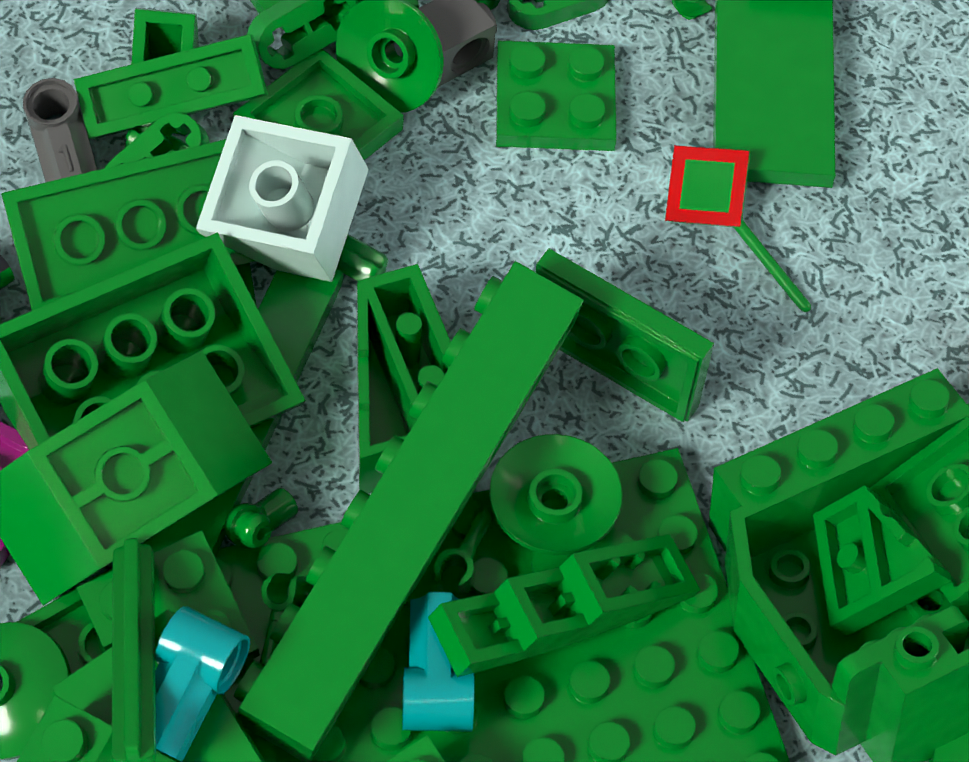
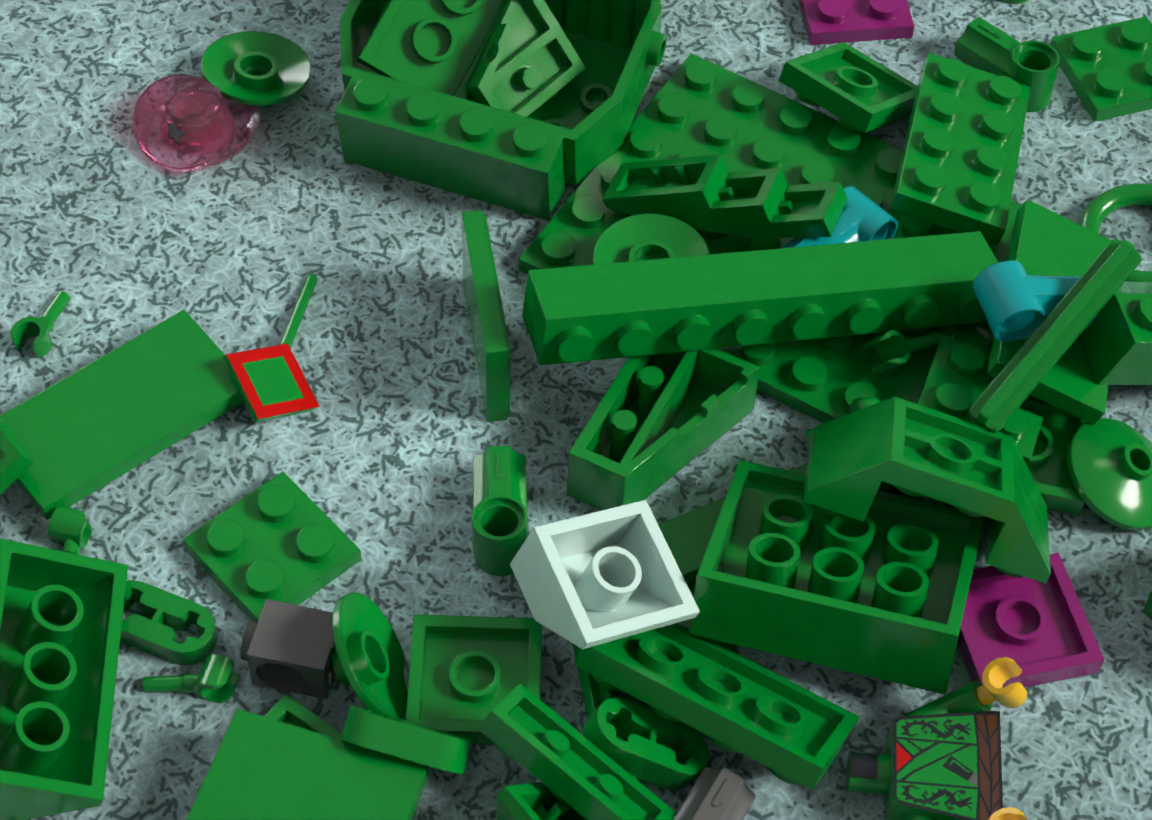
camera: 130 degrees left, 5 degrees down
(439, 237) = (499, 508): none -> green piece
(909, 94) = (39, 326): none -> green hand

